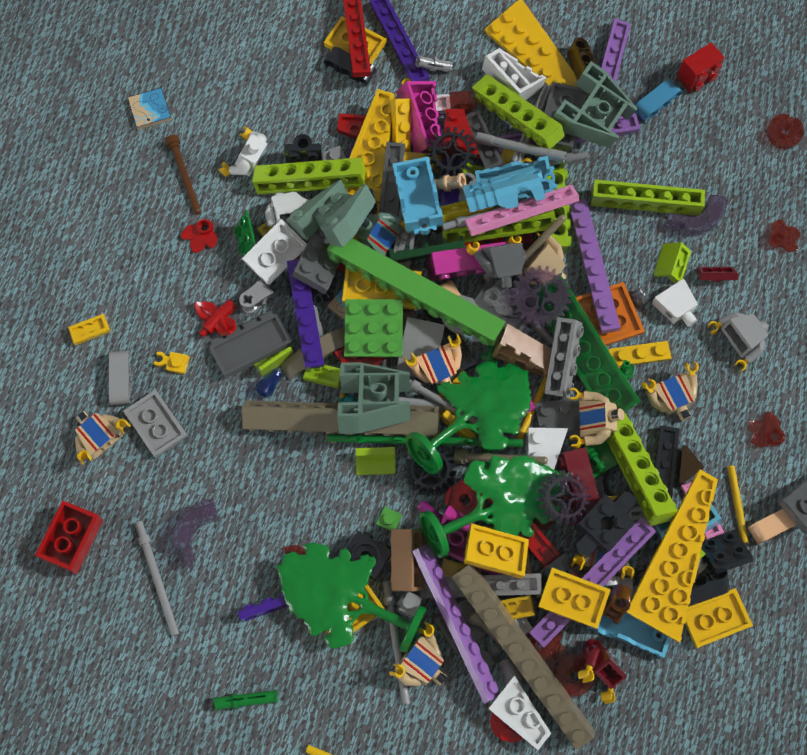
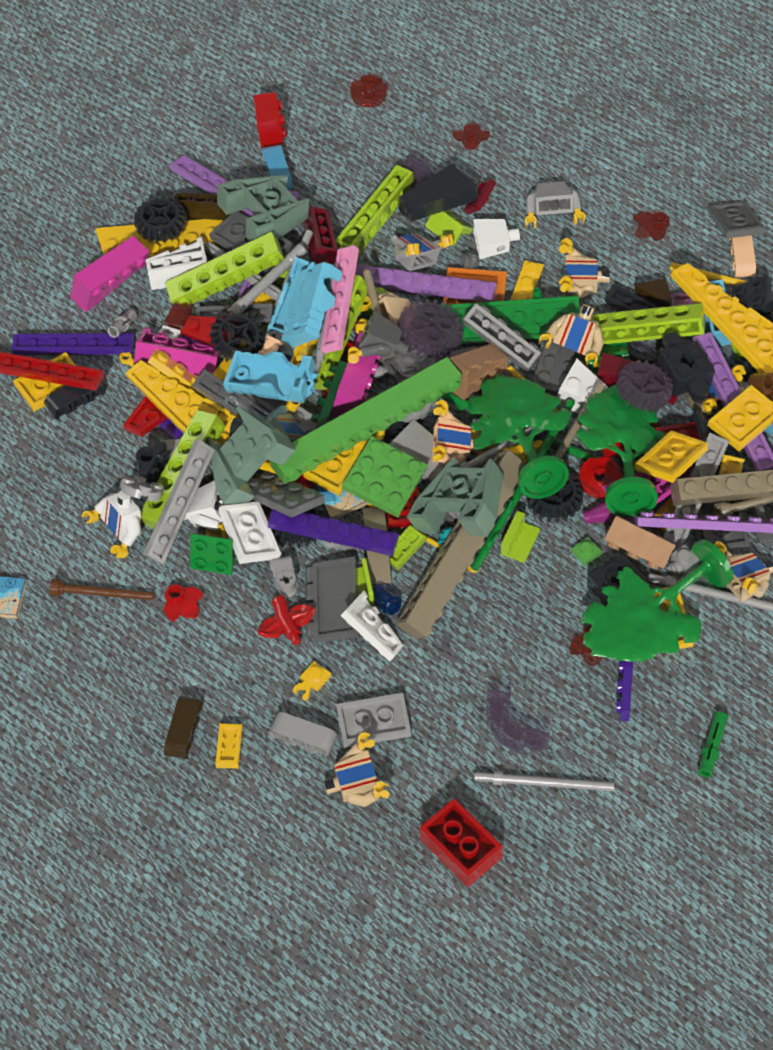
camera: 60 degrees left, 15 degrees down
(90, 288) = (182, 727): none -> dark brown beam
(233, 381) = (367, 622): none -> white wing
(266, 162) = (139, 487): none -> light grey plate
(275, 187) = (178, 502): none -> light grey plate
(474, 28) = (108, 273): none -> dark pink wedge
(538, 34) = (160, 216): none -> black gear
(593, 166) = (323, 243): none -> dark red brick
(626, 248) = (416, 251): none -> light grey torso
(690, 237) = (438, 193): none -> black slope

